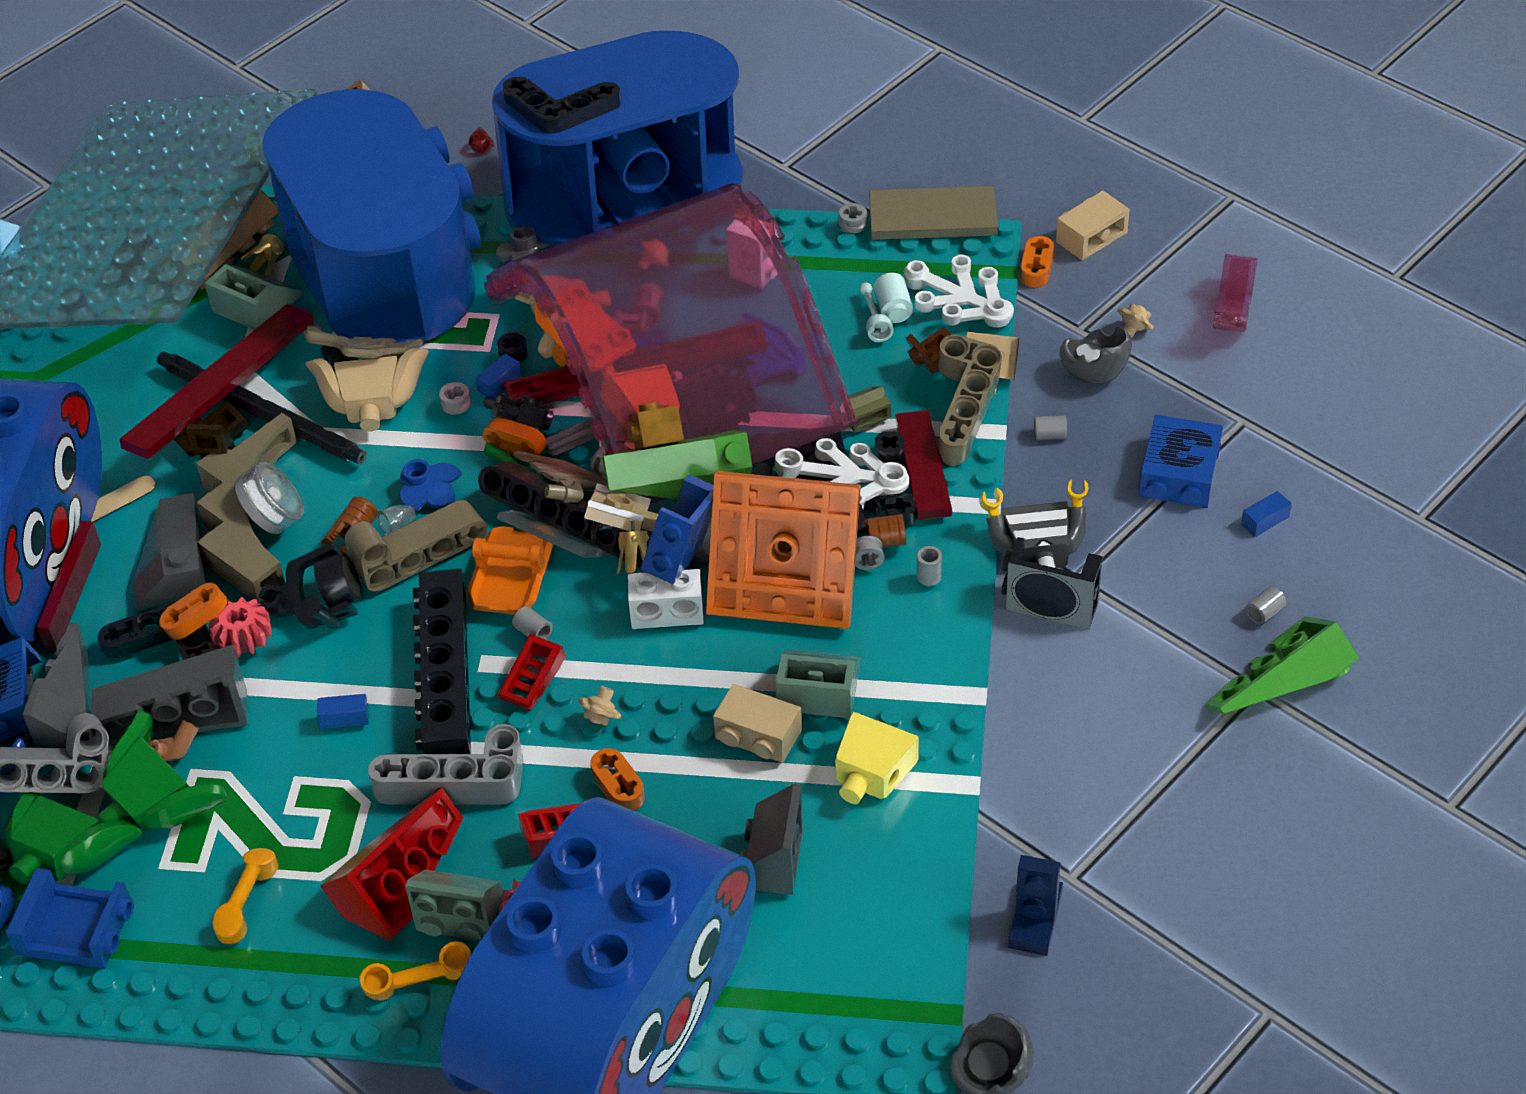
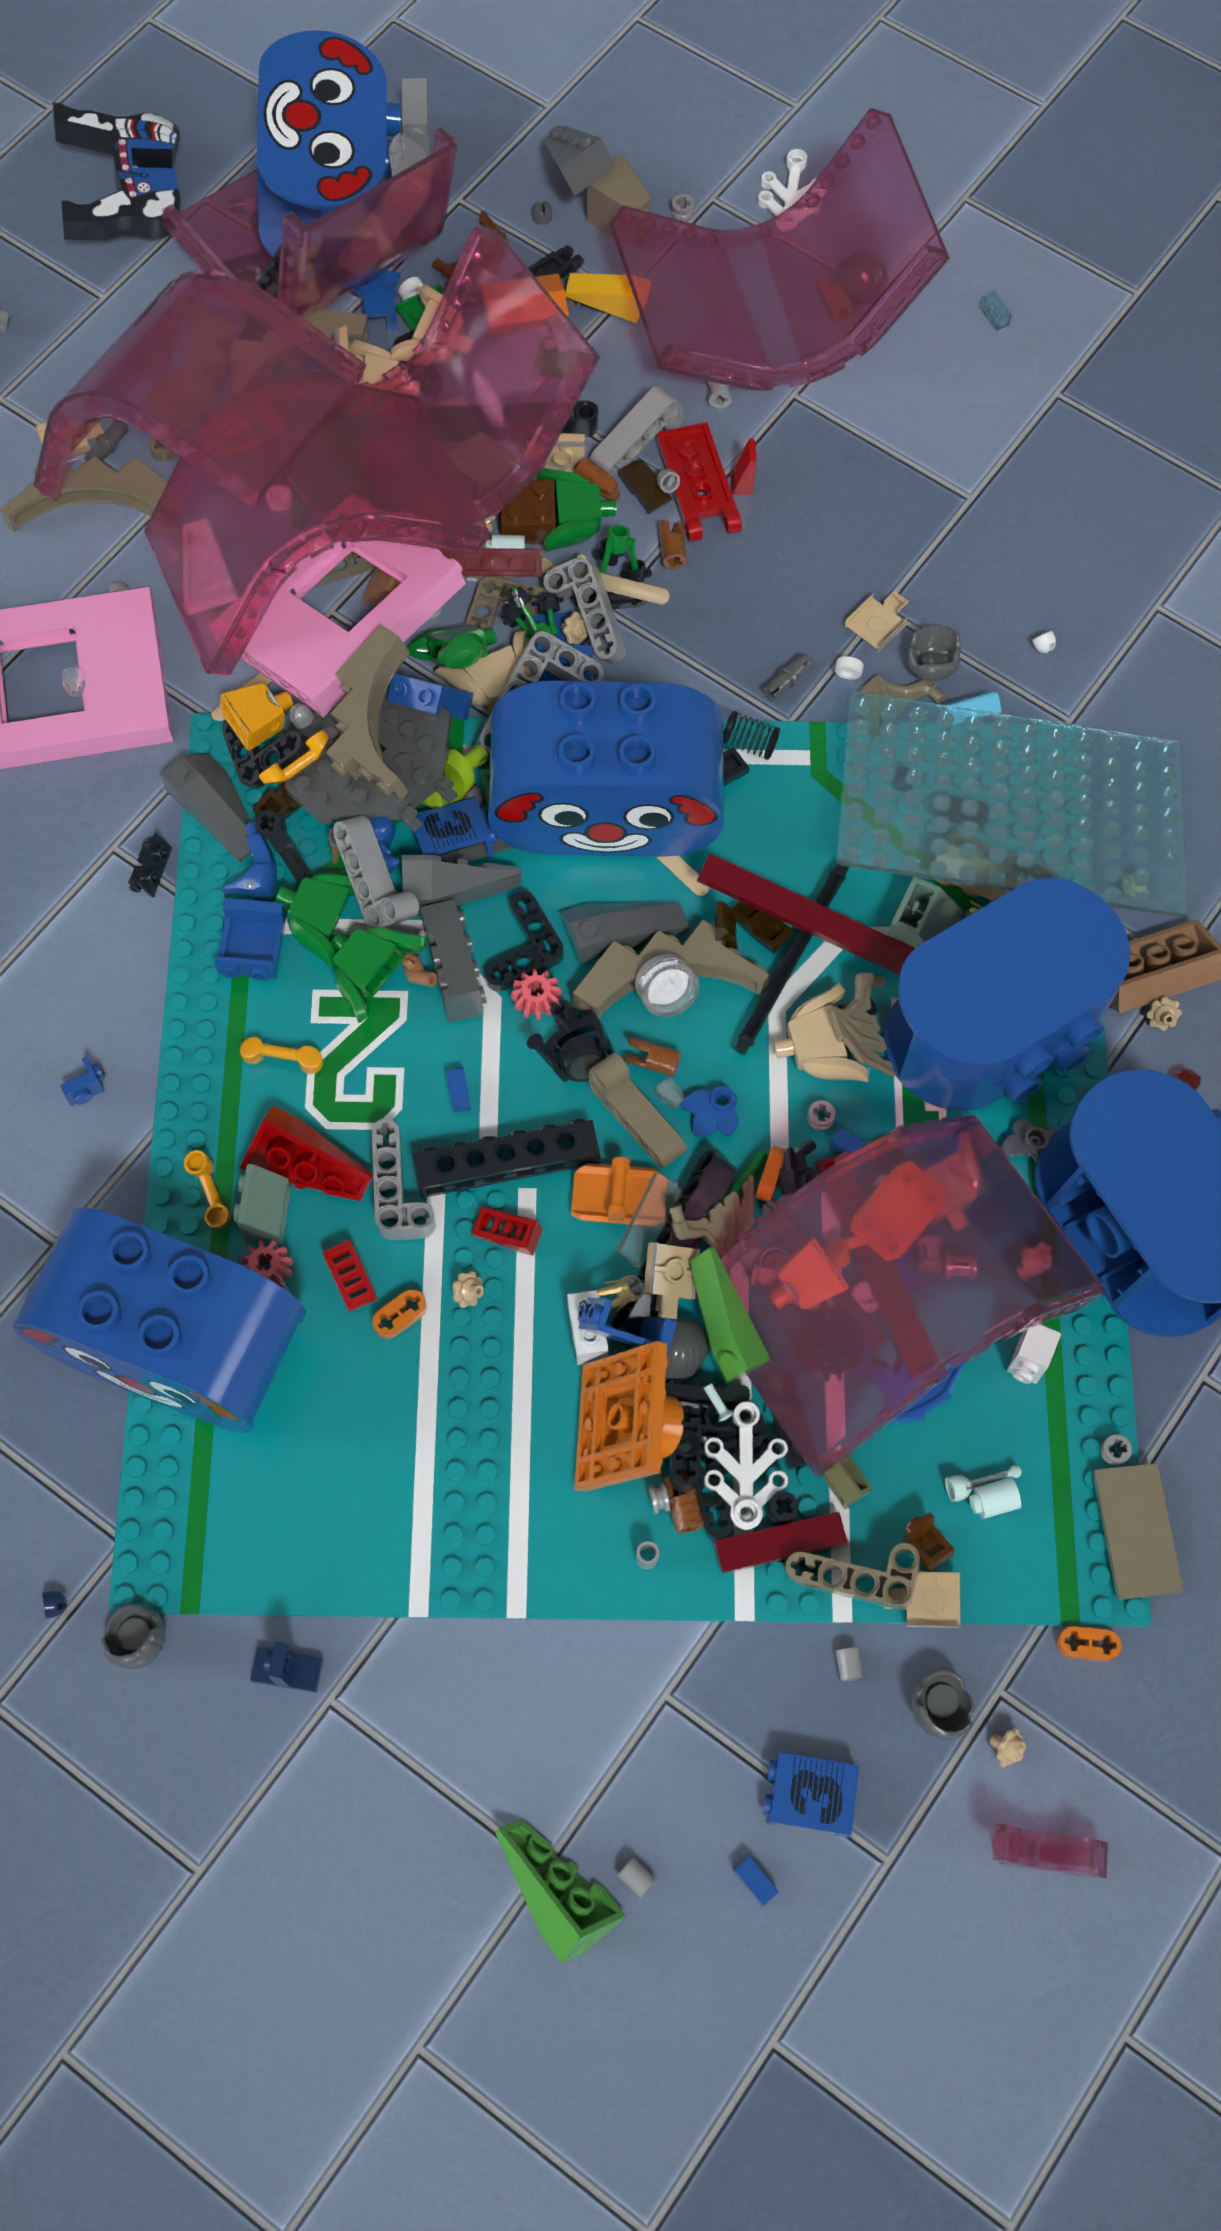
camera: 80 degrees right, 20 degrees up
(68, 585) = (572, 857): dark red tile -> none
(193, 611) = (533, 957): orange beam -> none
(530, 622) = (557, 1222): light grey hinge -> none
(559, 115) = (1113, 1126): black beam -> none
(654, 425) = (742, 1286): pearl gold brick -> none
(757, 723) = (456, 1420): tan brick -> none
(776, 840) = (327, 1445): dark grey slope -> none
(818, 682) = (507, 1466): sand green slope -> none
(873, 758) = (423, 1519): light yellow torso -> none
(993, 310) = (1015, 1567): white plant -> none
(1048, 528) = (702, 1655): dark grey torso -> none
(1051, 591) = (618, 1701): black panel -> none
(1092, 225) = (1146, 1698): tan brick -> none

